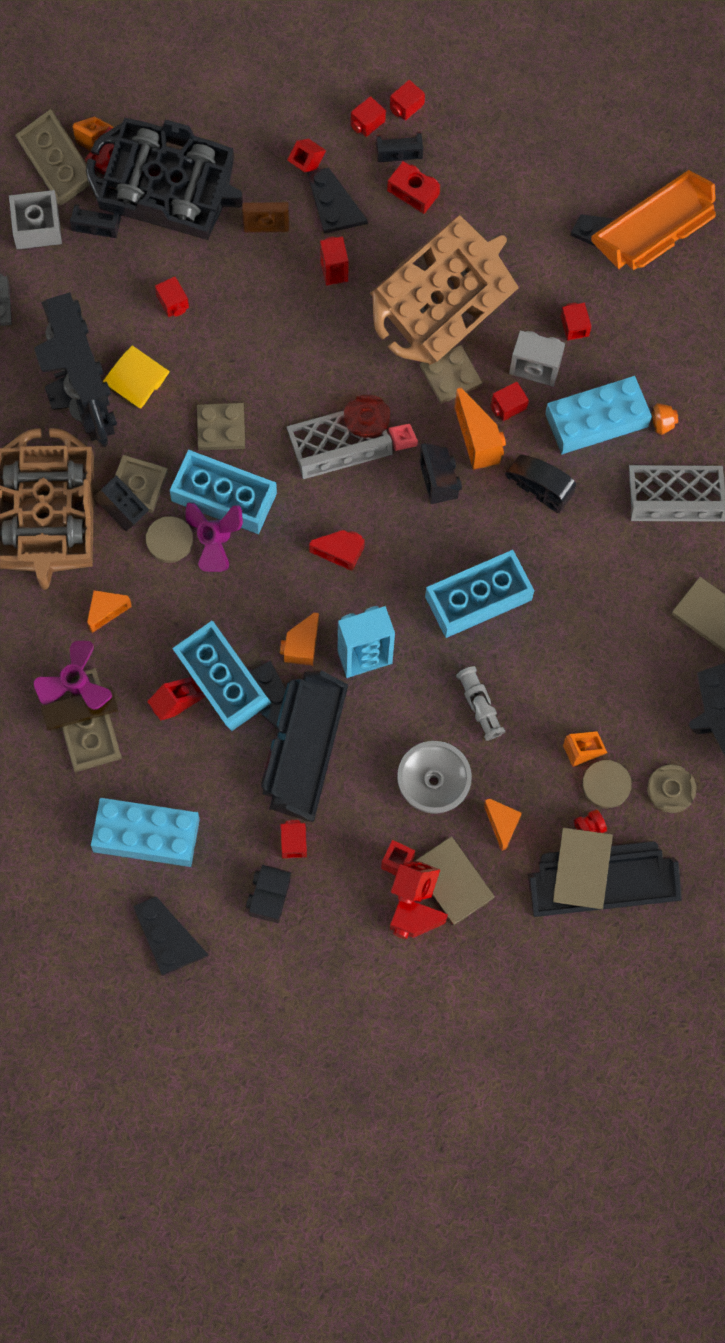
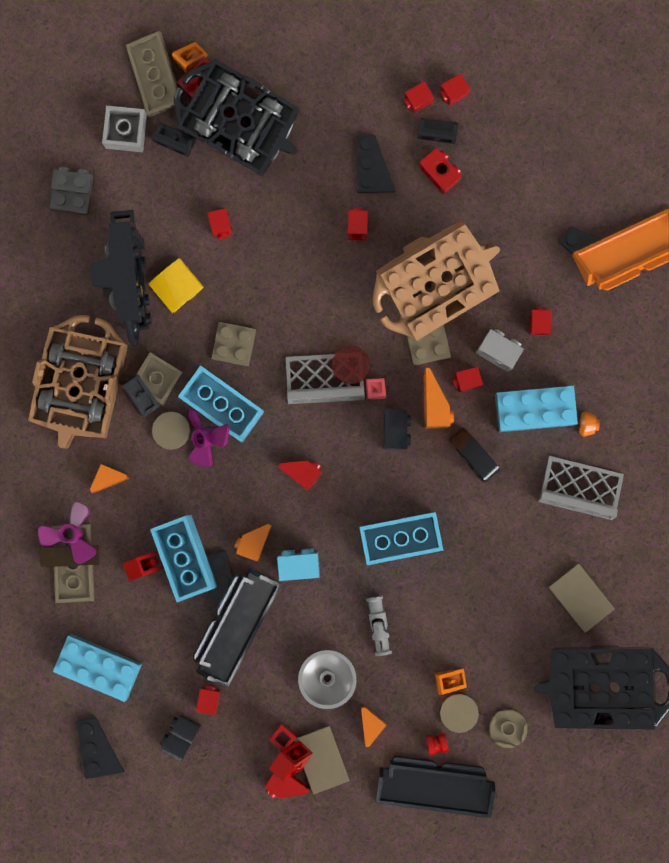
camera: 15 degrees right, 15 degrees up
(265, 217) = (311, 172): reddish brown tile -> none
(306, 155) = (359, 122): red brick -> none
(582, 868) = (421, 779): dark tan tile -> none

